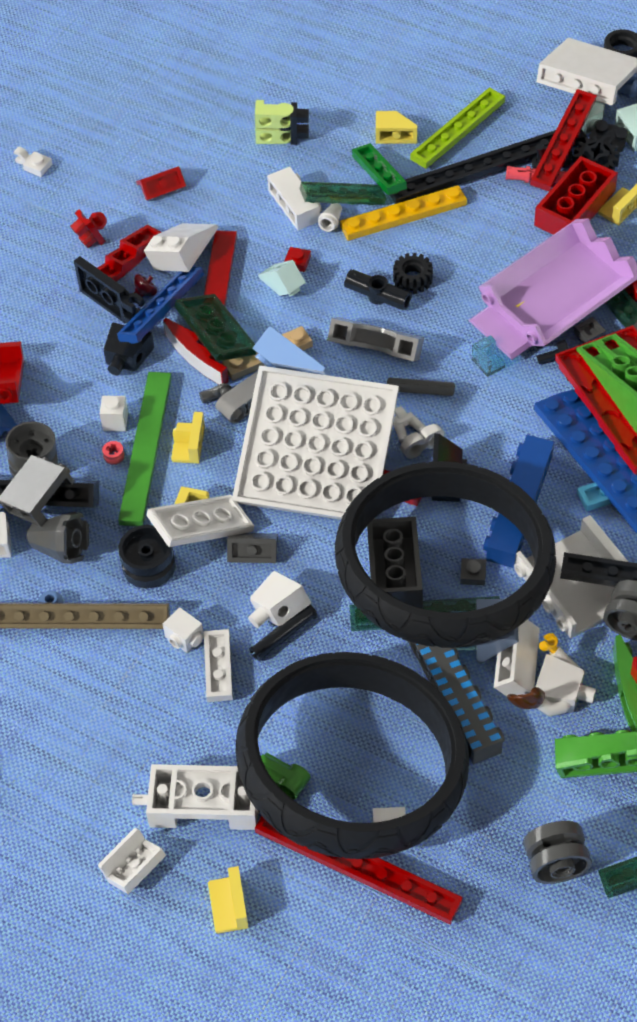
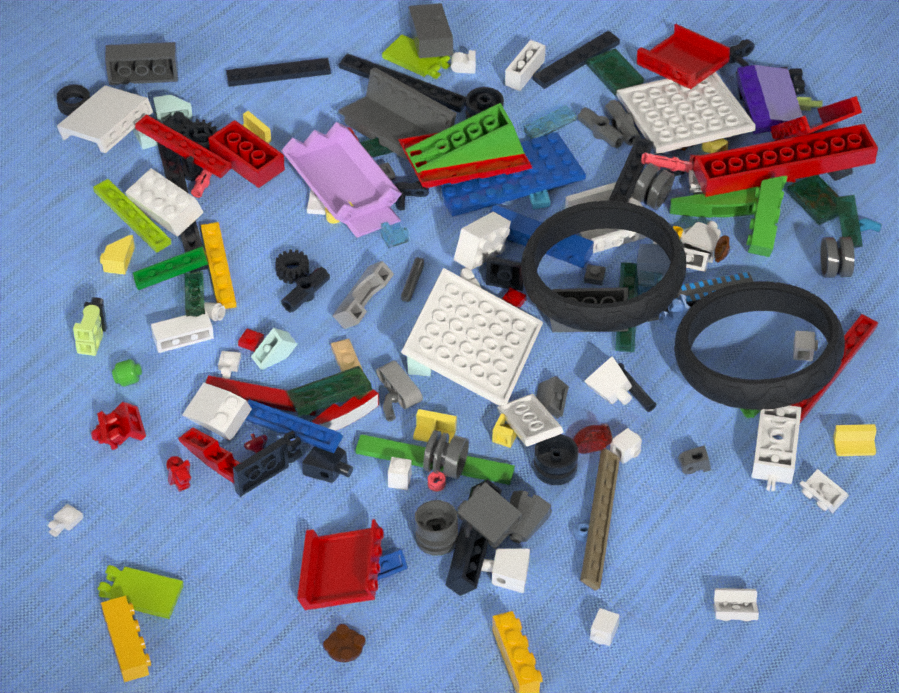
camera: 85 degrees left, 5 degrees down
(129, 442) = (442, 453): none -> dark grey wheel
(145, 166) = (105, 430): none -> red hips
(169, 710) = (694, 460): none -> dark grey leg
(189, 592) = (593, 438): none -> clear red hat
(218, 665) = (660, 428): white plate -> none
(226, 166) = (126, 372): none -> bright green head
(259, 246) = (229, 362): none -> white plate
(279, 352) = (389, 336): light blue slope -> none
(411, 658) = (676, 312): none -> medium blue hips
(472, 142) = (164, 202): none -> white brick
(478, 431) = (481, 240): none -> white brick

